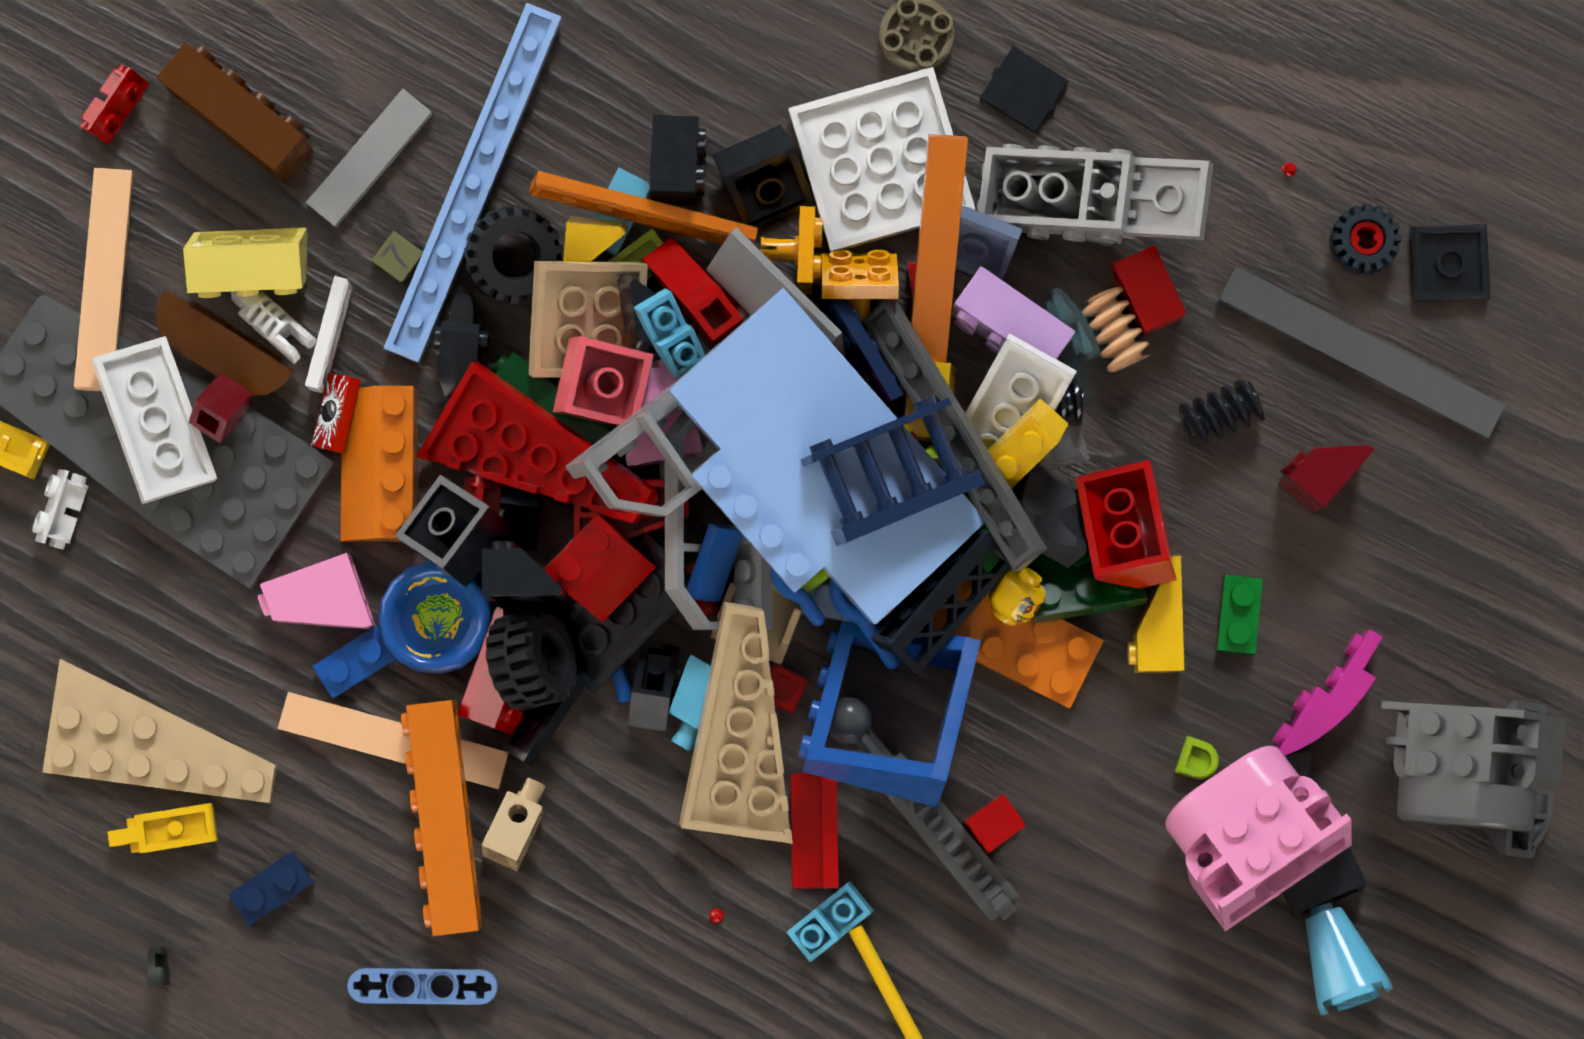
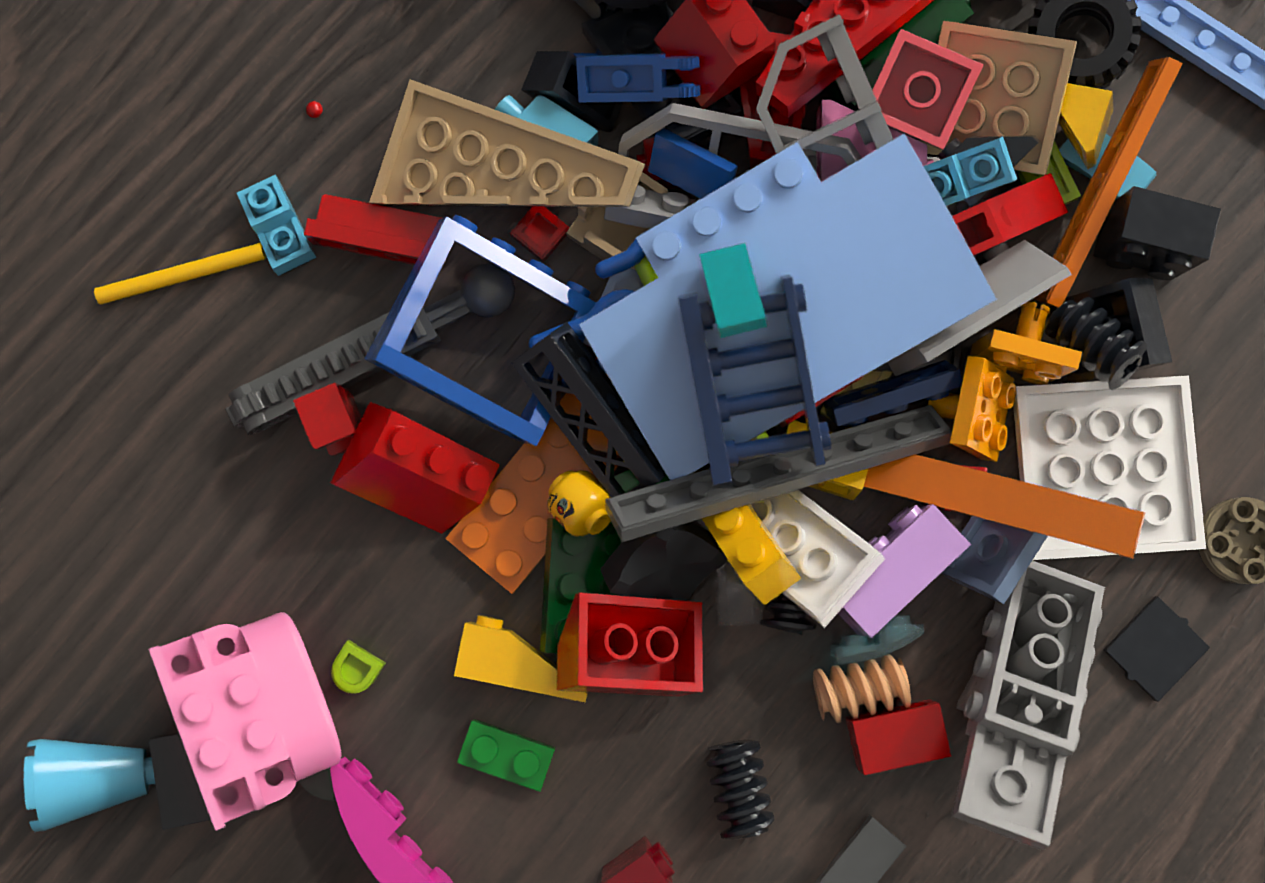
camera: 100 degrees right, 0 degrees up
(643, 629) = (632, 78): none -> blue hinge
(784, 194) = (1099, 345): none -> black piece
(828, 500) = (733, 290): none -> teal tile
(1021, 741) = (413, 470): none -> red slope

